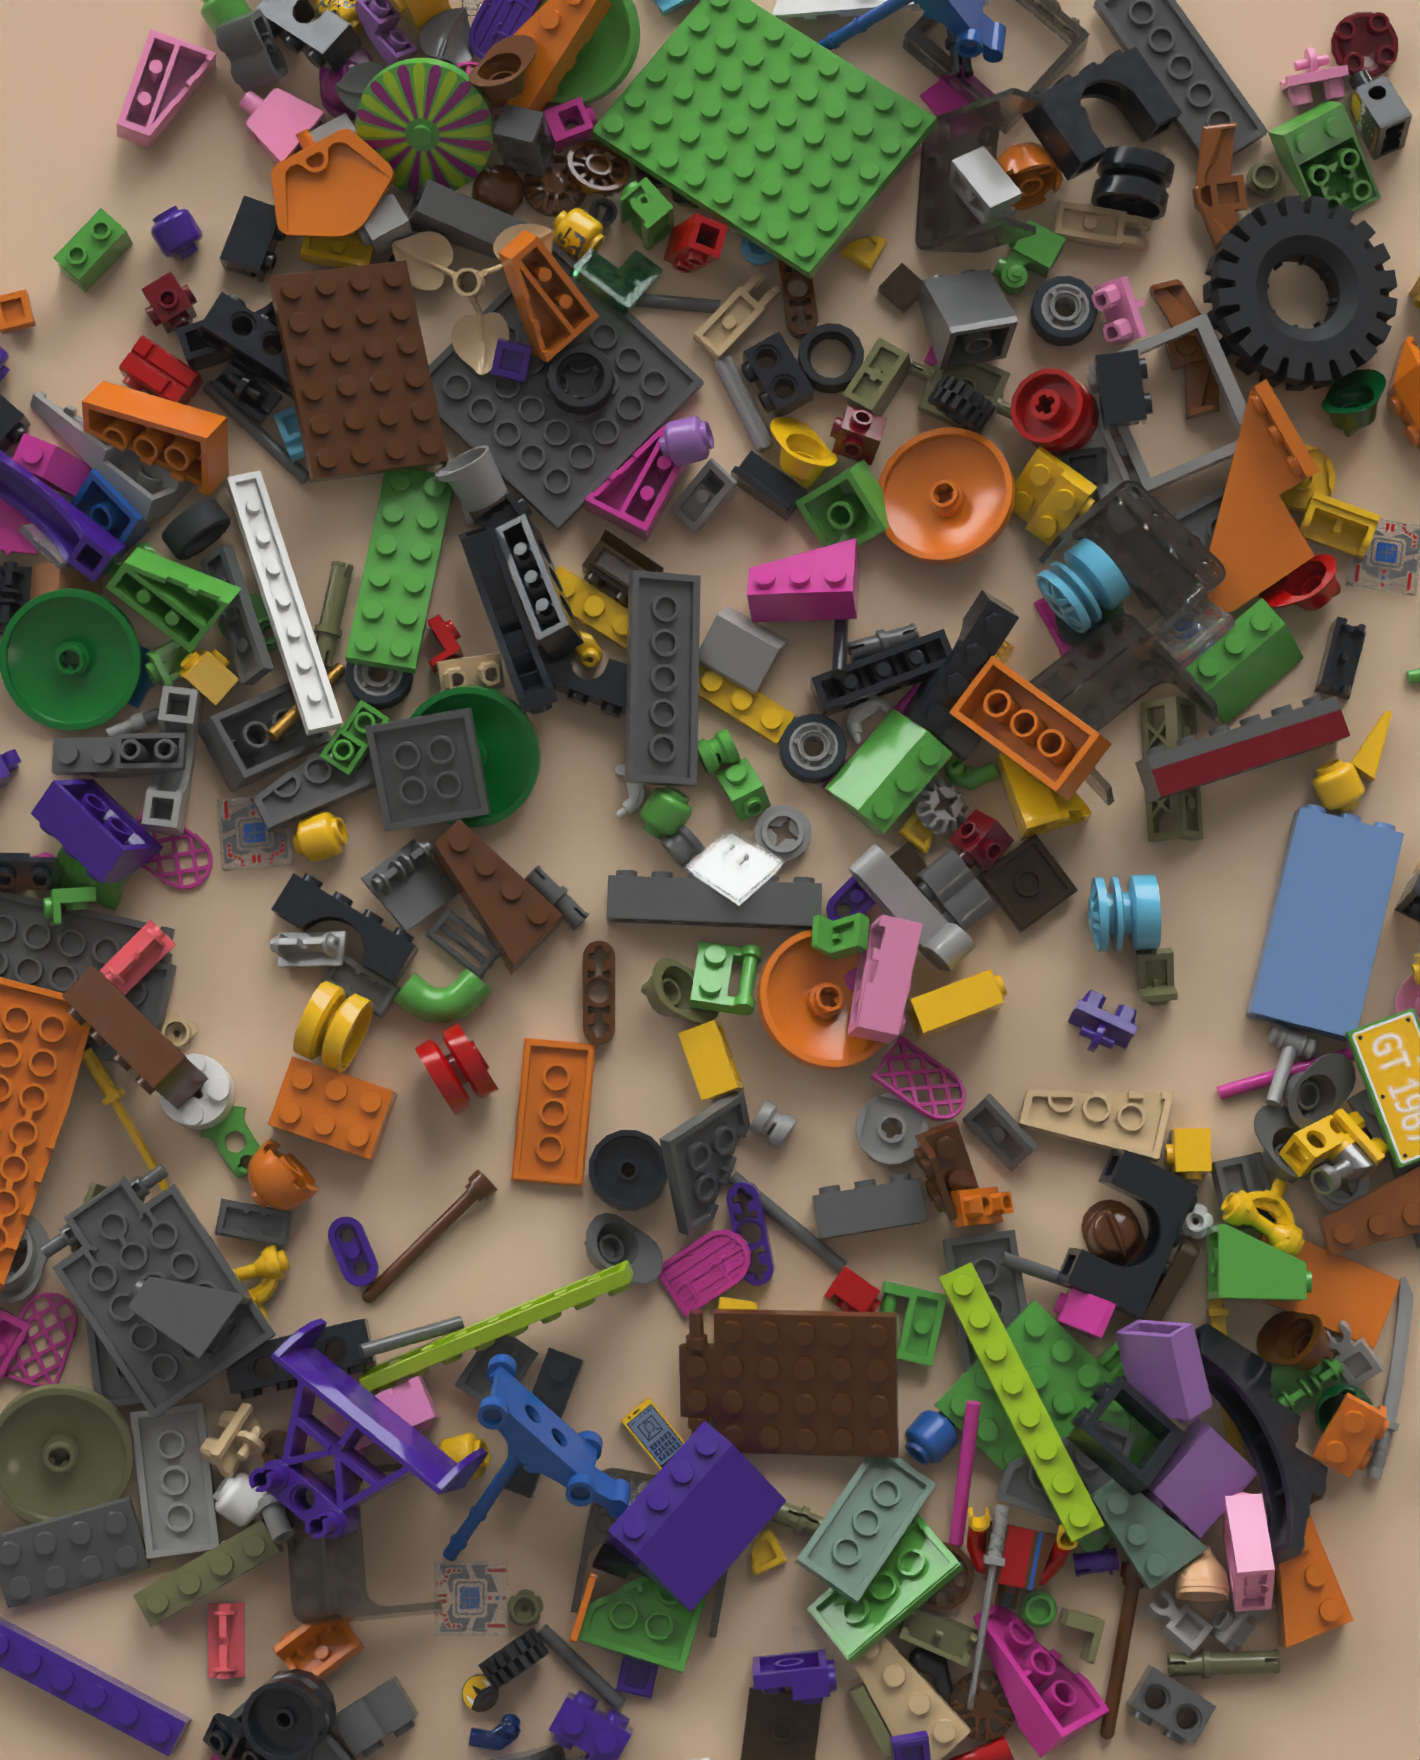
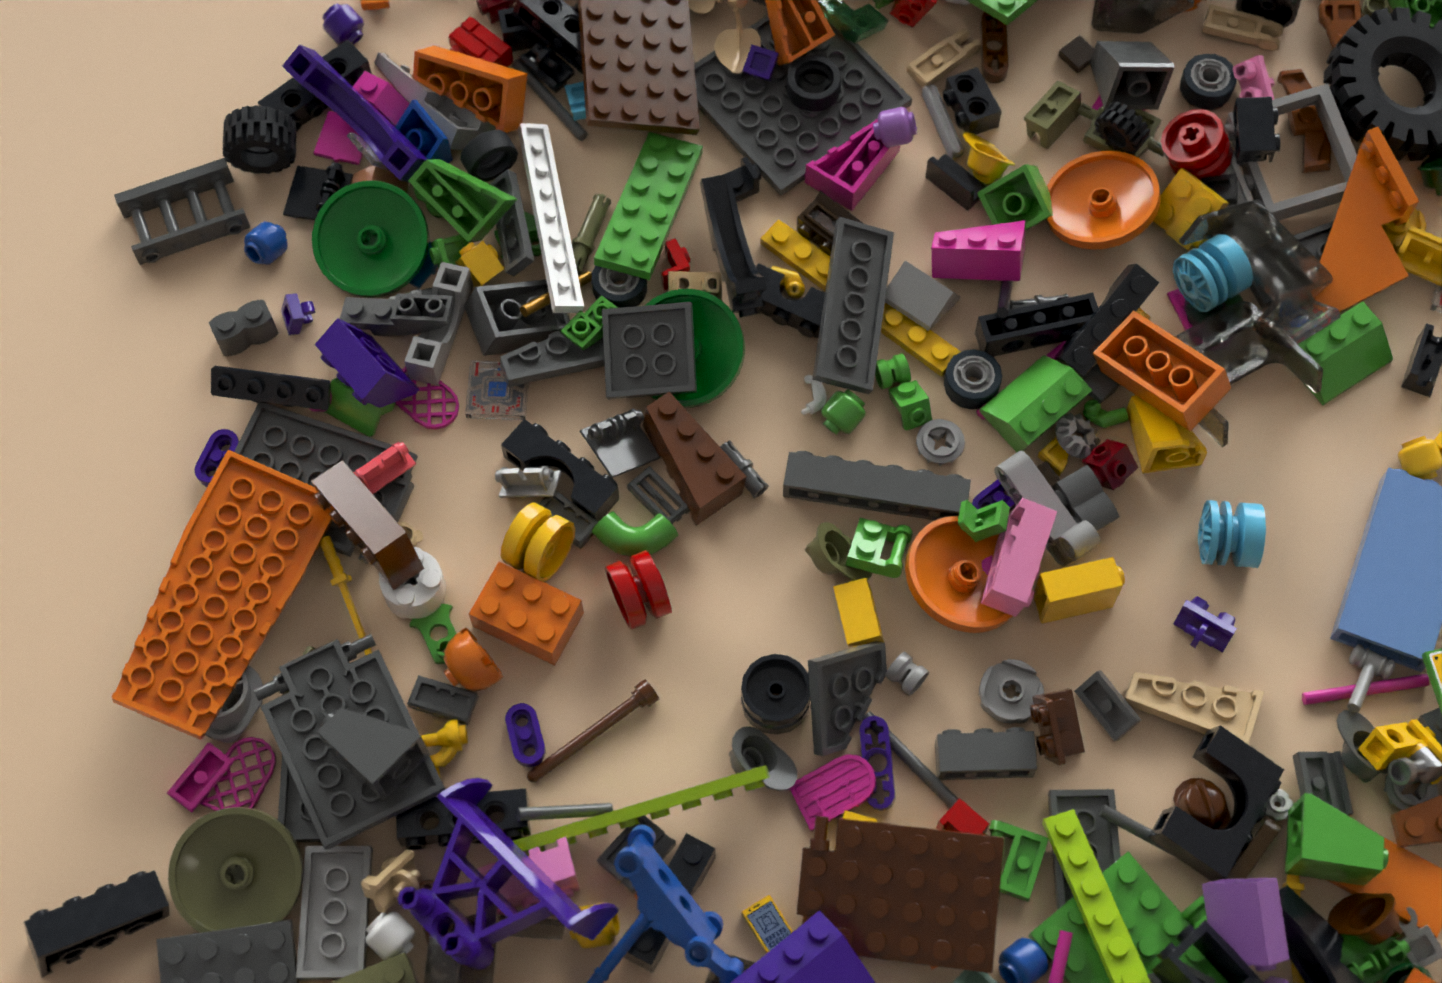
camera: 10 degrees right, 15 degrees down
(74, 898) = (337, 415): bright green bracket -> none
(275, 1519) = (415, 945): light grey pin -> none
(320, 837) = (551, 397): yellow head -> none
(474, 480) = (718, 146): light grey hat -> none
(538, 586) = (760, 224): black brick -> none
(553, 1112) = (716, 643): orange tile -> none
(590, 966) = (774, 571): reddish brown beam -> none
(679, 303) = (894, 46): dark grey bar -> none
(683, 846) = (855, 440): dark grey wheel -> none
(704, 495) = (907, 174): light grey slope -> none
(735, 865) = (897, 458): clear piece -> none
(755, 254) = (966, 14): medium azure plate -> none
(833, 332) = (1018, 77): black tyre -> none
(858, 434) = (1033, 147): dark red brick -> none
(863, 712) = (1017, 358): white piece -> none
(864, 251) = (1050, 26): yellow tile -> none
(939, 1068) = (1022, 660): dark pink window -> none
(980, 1206) = (1085, 764): orange hips -> none
(1027, 883) = (1147, 505): dark brown plate -> none
(1031, 253) = (1185, 37): bright green brick -> none
(1083, 1312) = (1173, 868): dark pink slope -> none
(1156, 976) = (1254, 591): olive bracket -> none
(1186, 806) = (1287, 431): olive fence -> none
(1189, 1152) = (1277, 740): yellow brick -> none
(1241, 748) = (1340, 414): brick -> none
(1242, 1209) = (1330, 790): yellow piece -> none
(1307, 586) = (1401, 301): red piece -> none
(1319, 1089) = (1397, 699): dark grey piece -> none

